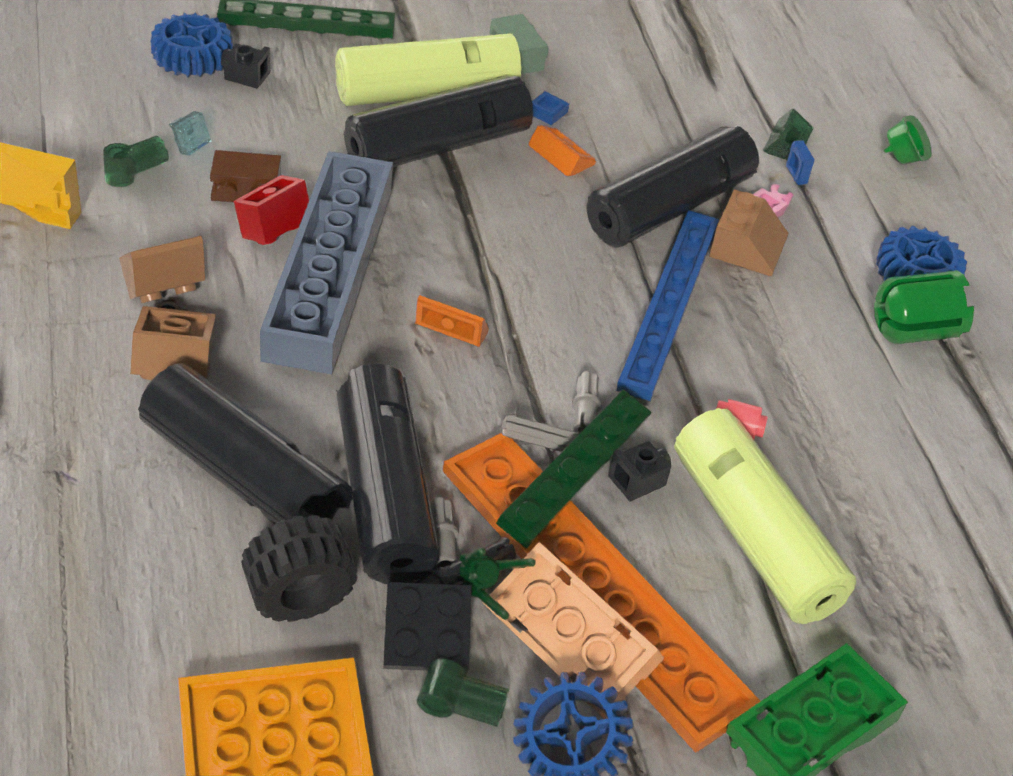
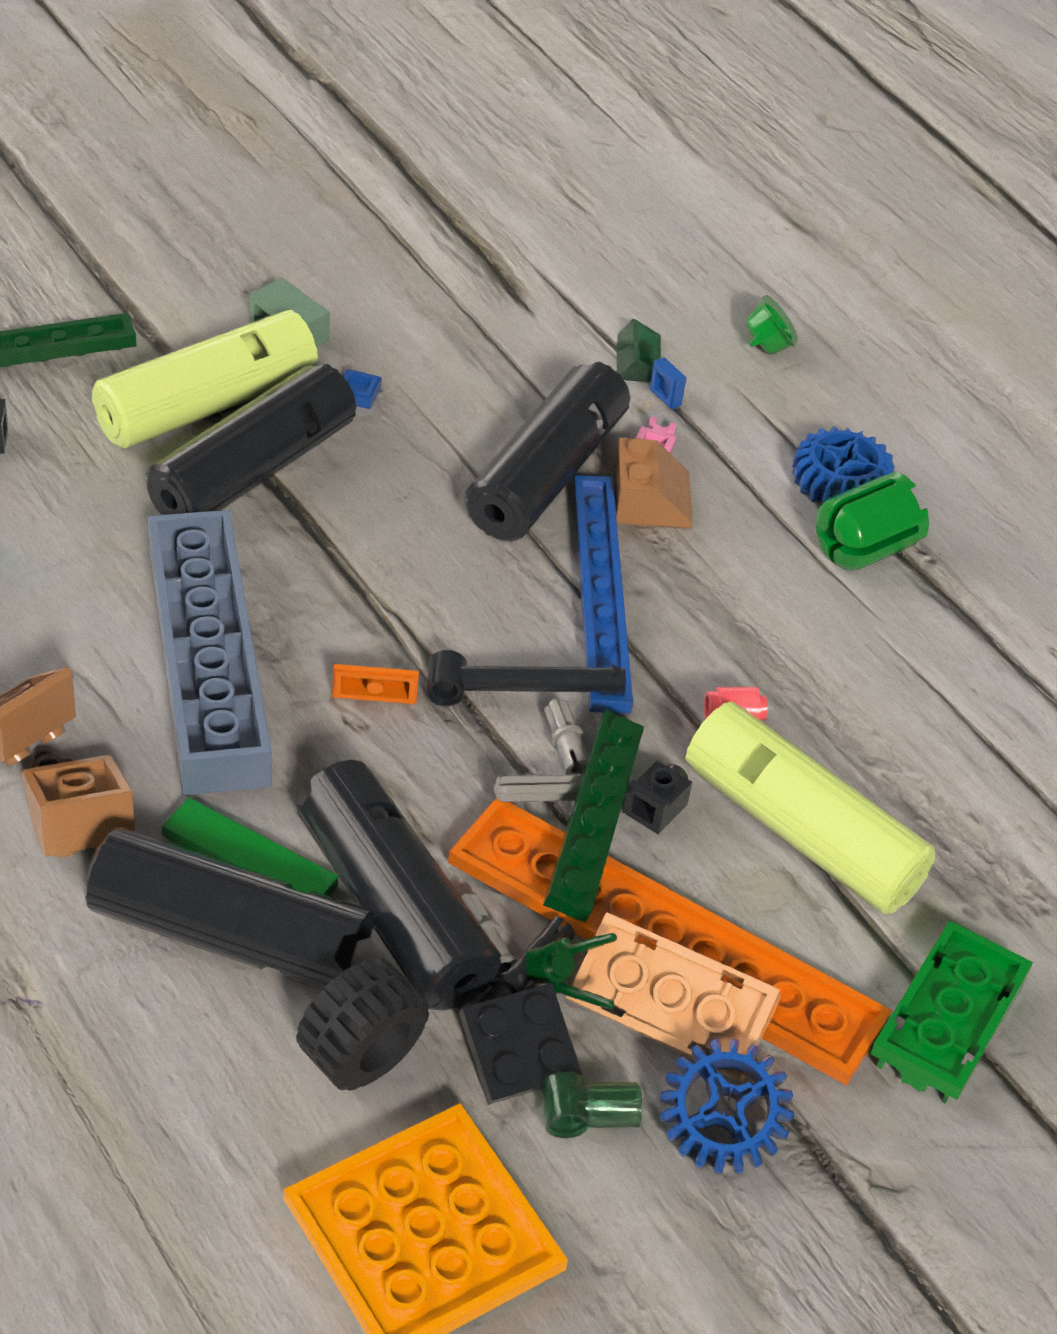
camera: 20 degrees left, 0 degrees up
(240, 173) = (55, 574): reddish brown brick -> none
(272, 209) = (111, 605): red brick -> none
(287, 416) = (219, 837): none -> green tile
(515, 330) = (451, 677): none -> black piece
(560, 150) = (397, 439): orange slope -> none

